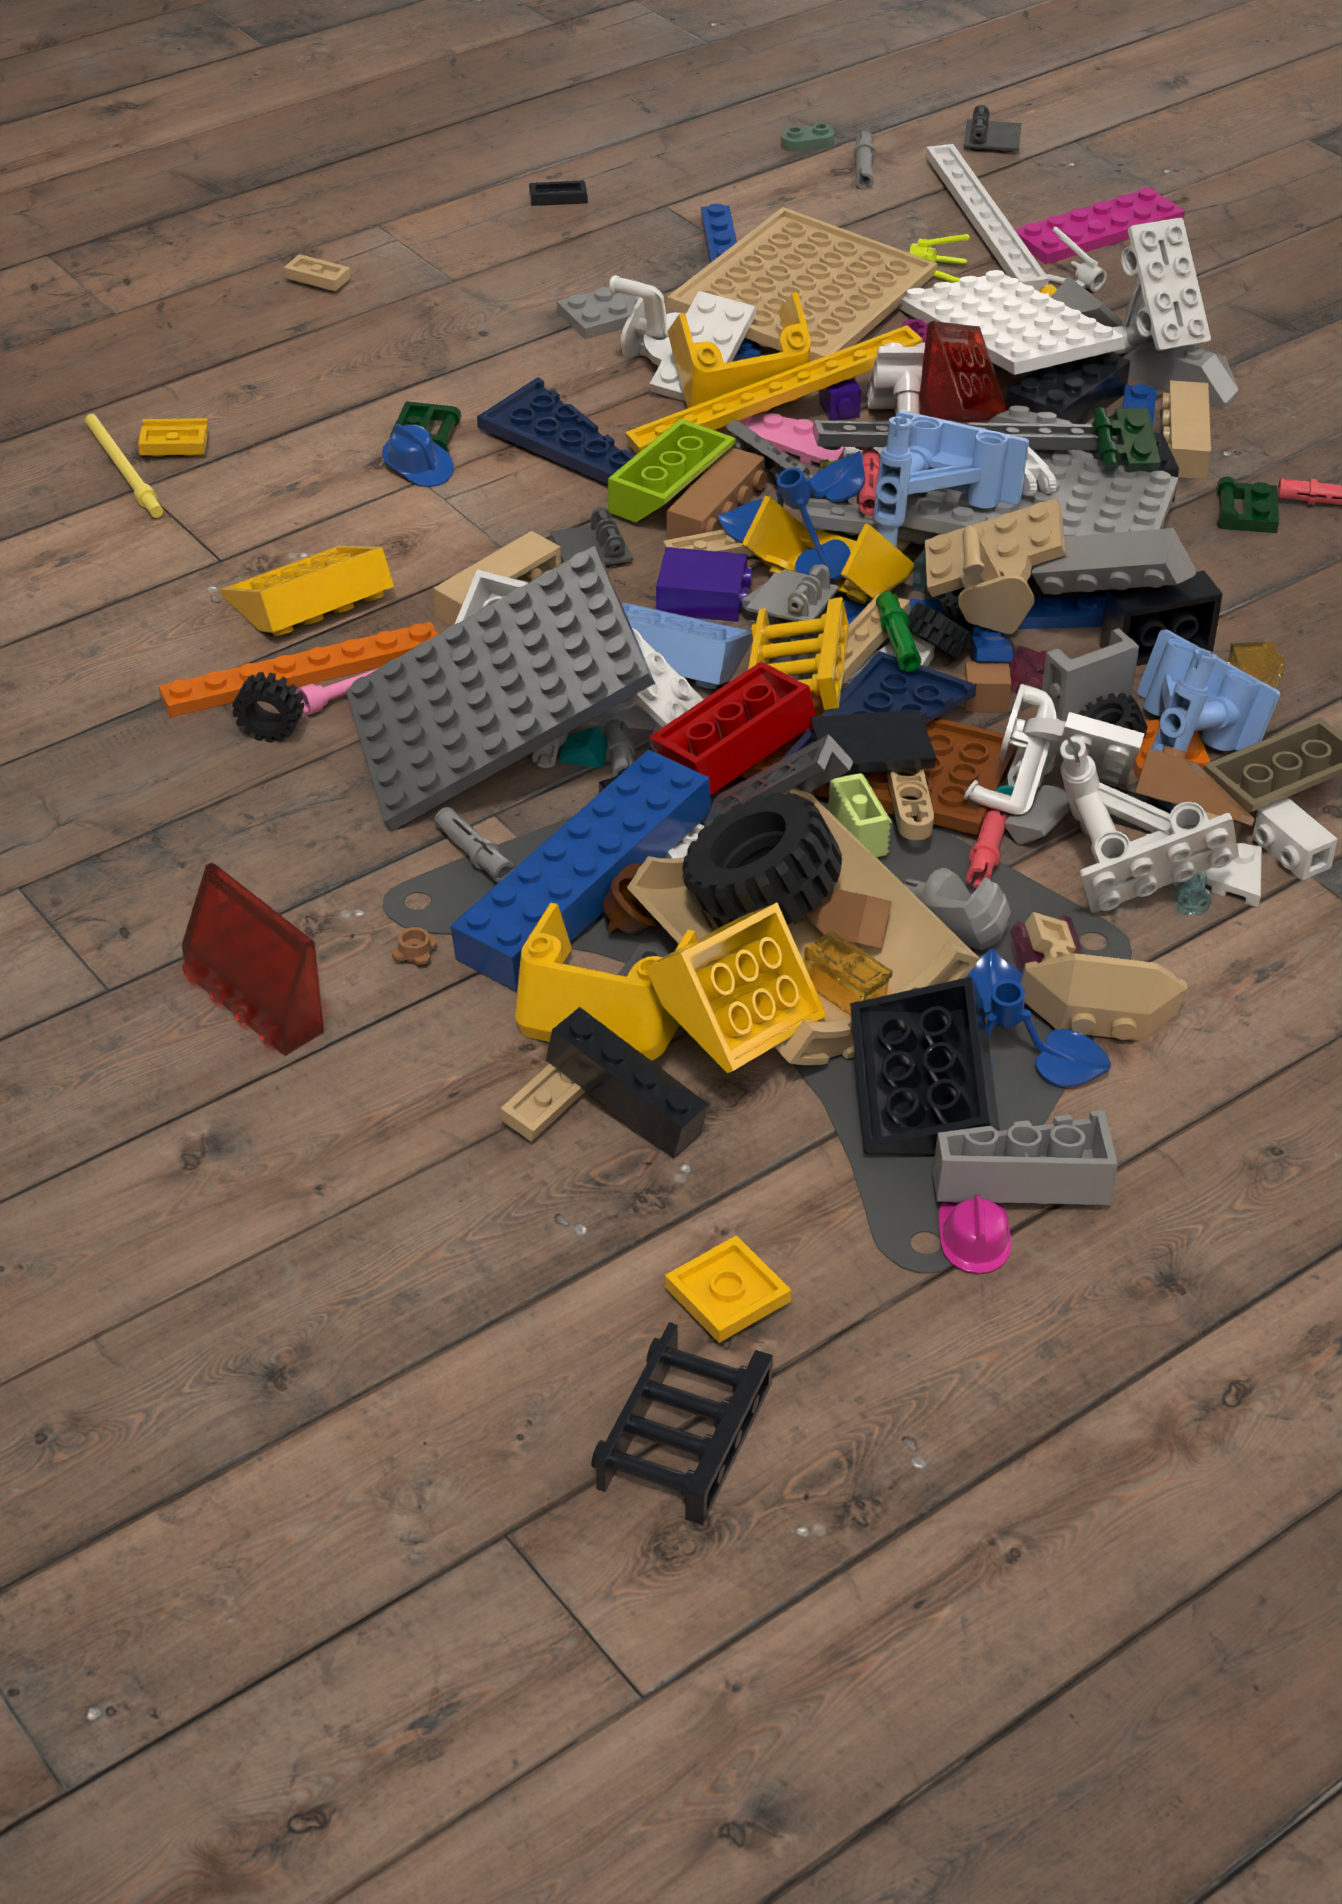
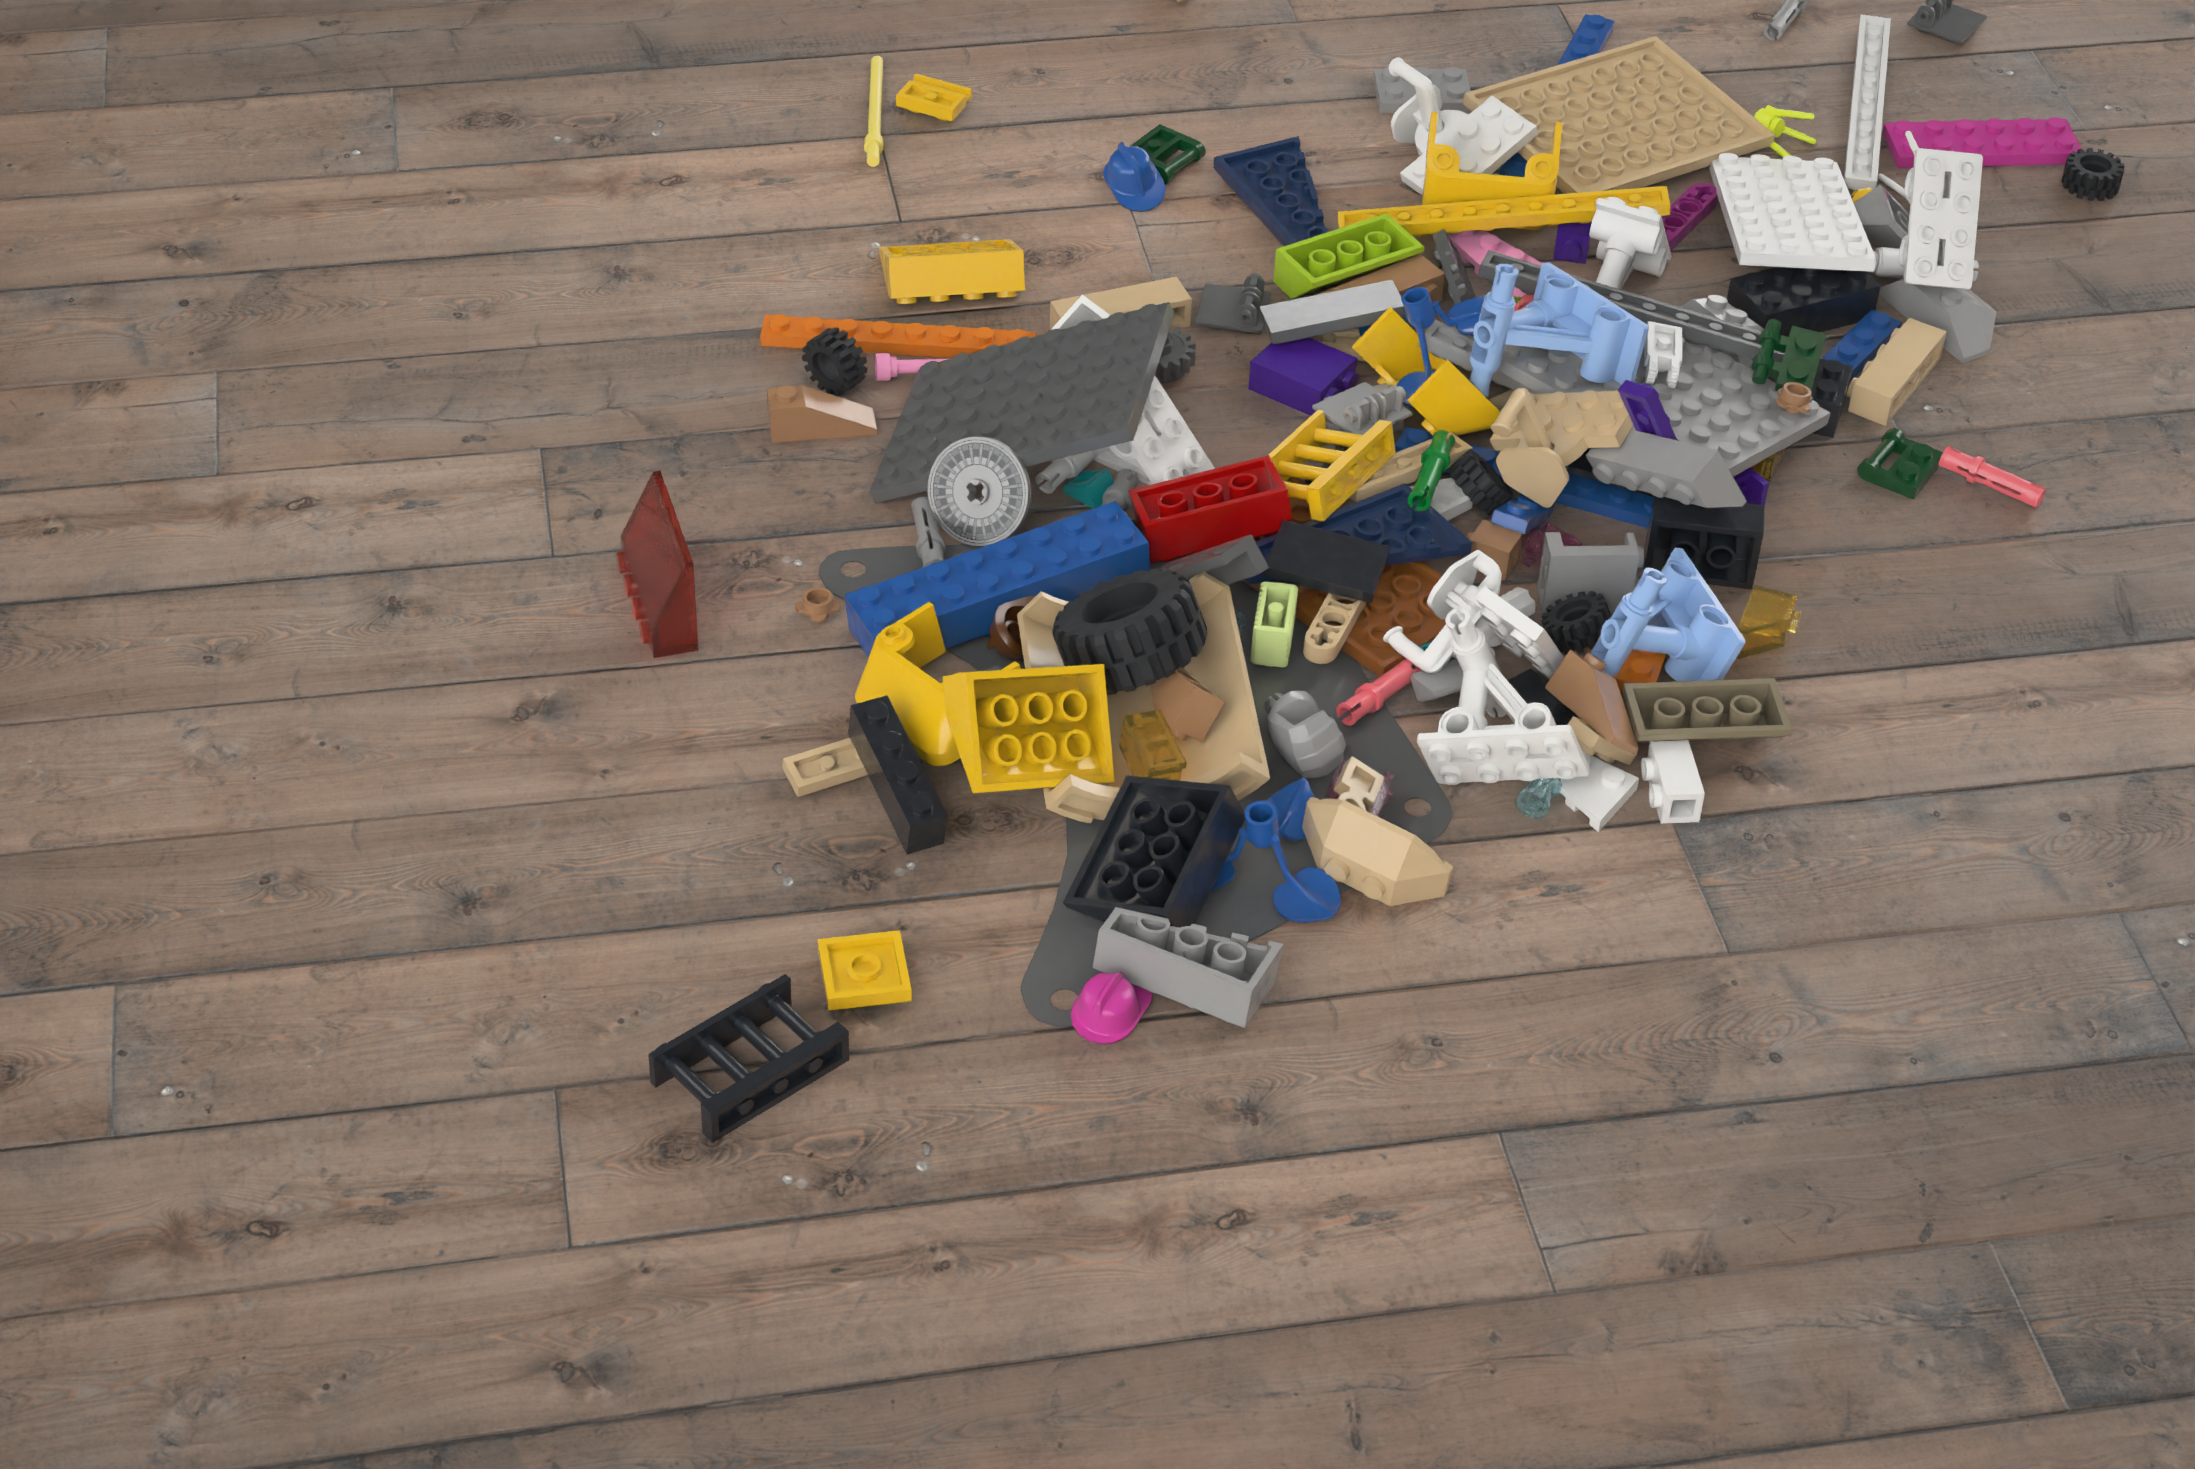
camera: 25 degrees right, 0 degrees up
(275, 765) = (810, 414): none -> medium nougat slope
(495, 755) = (1005, 491): none -> piece
(692, 645) = (1228, 411): light blue slope -> none
(700, 519) = (1330, 311): none -> tile
(958, 375) = (1668, 248): clear red slope -> none
(1082, 511) = (1646, 409): none -> dark purple plate
(1153, 471) = (1794, 398): none -> medium nougat plate
(1207, 225) = (2093, 174): none -> black tyre

